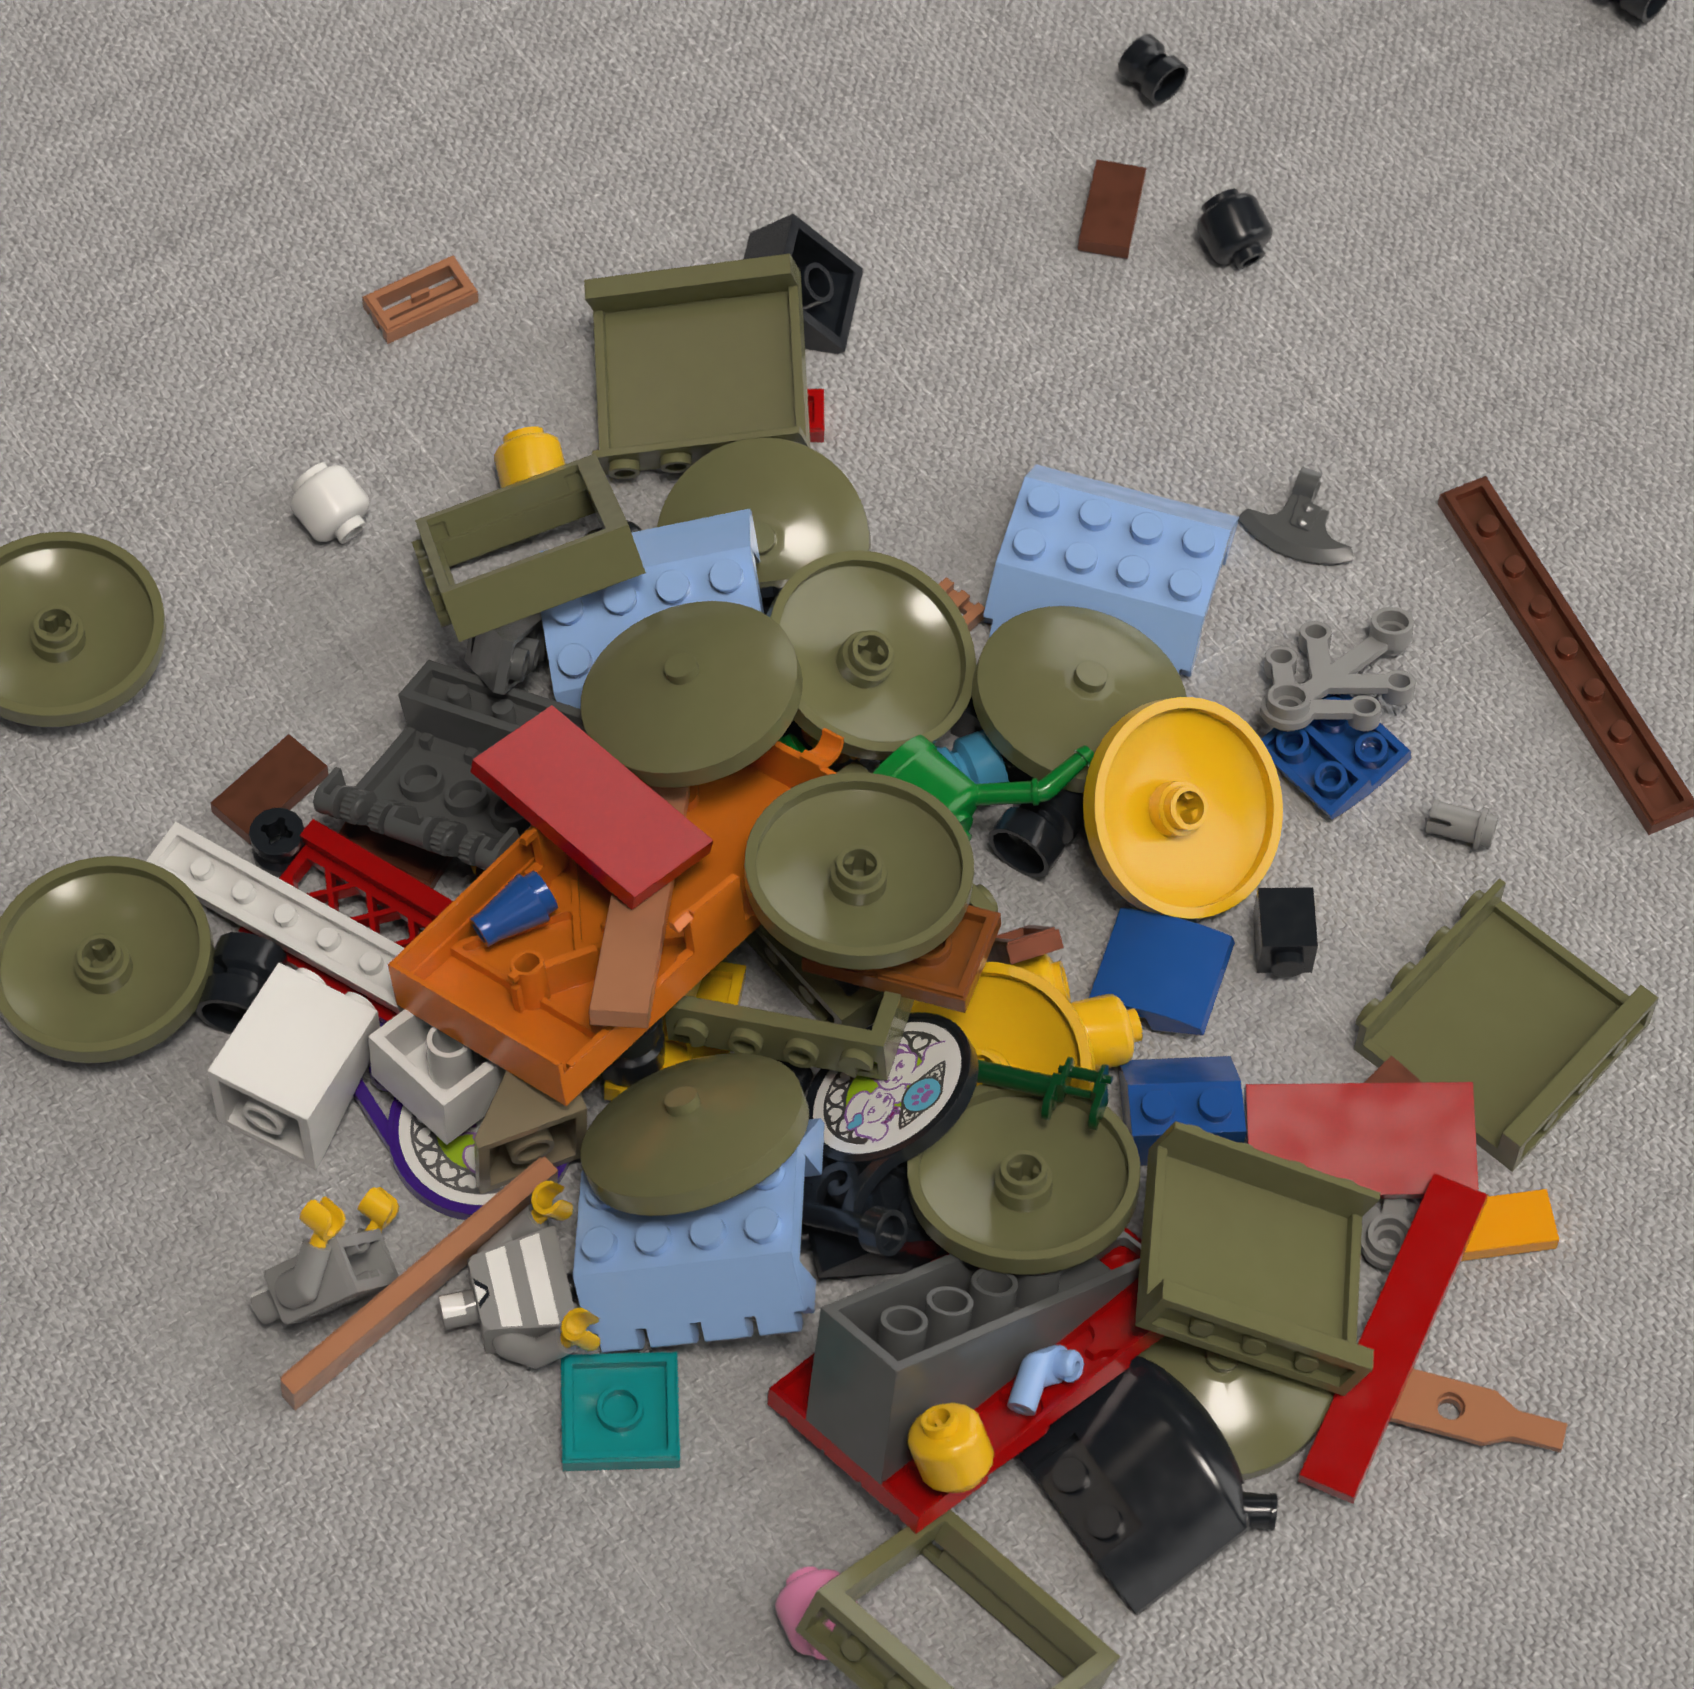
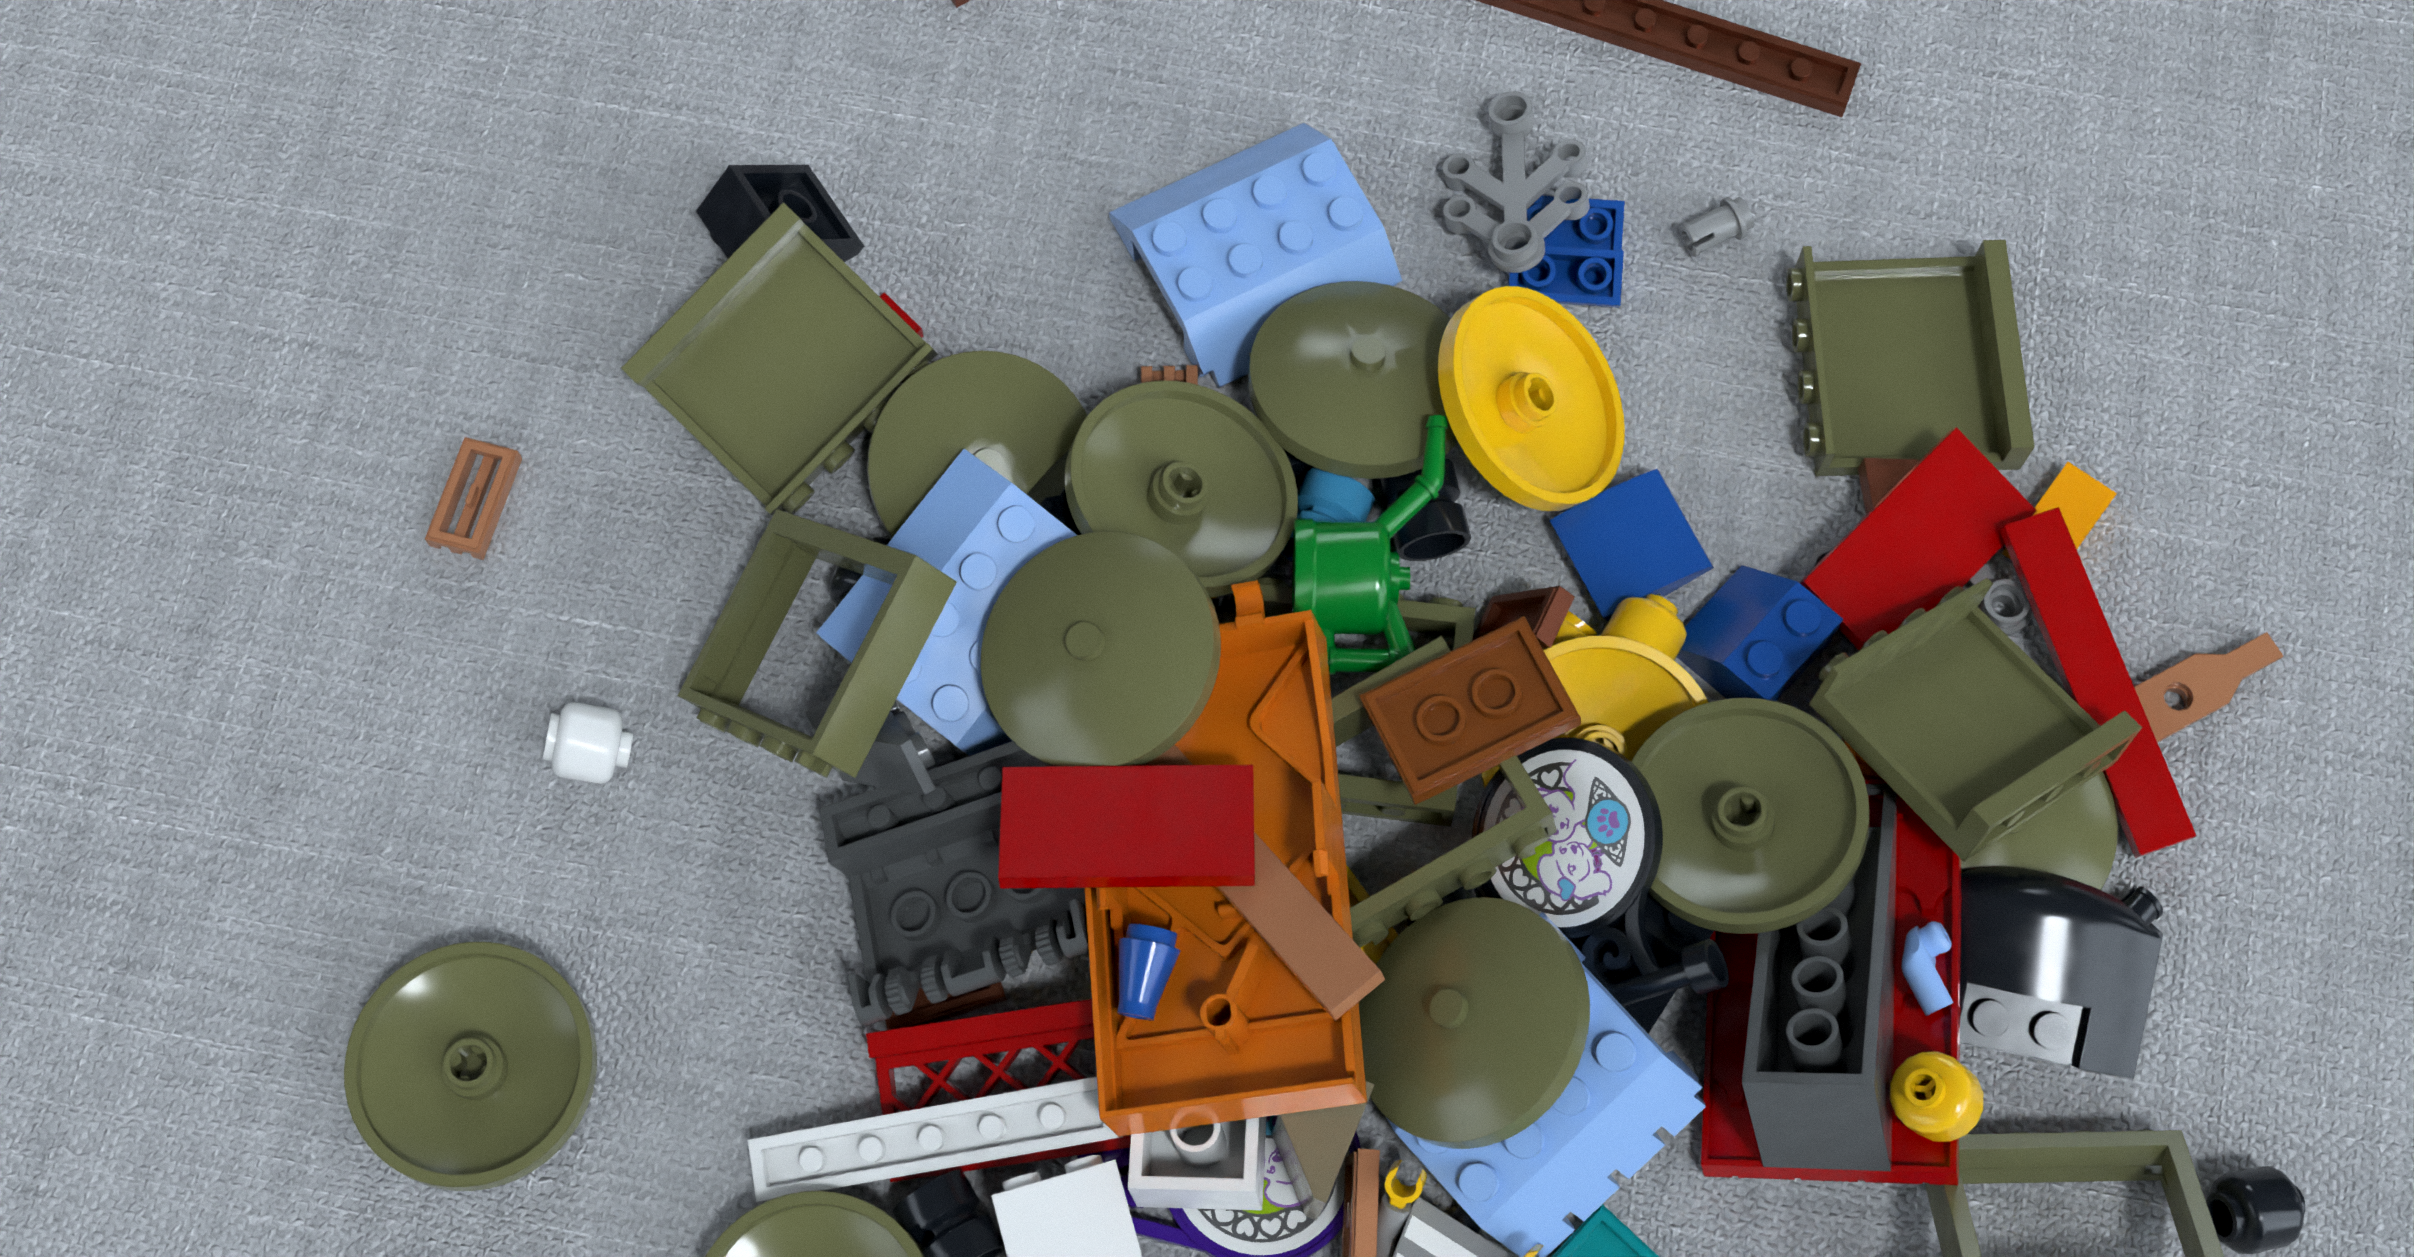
camera: 40 degrees left, 10 degrees up
(272, 782) = (787, 1034): copper tile -> none
(276, 856) = (853, 1086): black wheel -> none
(527, 454) = (715, 561): yellow head -> none
(858, 870) = (1398, 685): olive dish -> none
(1053, 1086) = (1693, 720): dark green piece -> none
(1285, 931) = (1686, 429): black brick -> none
(1300, 527) = (1356, 91): dark grey piece -> none

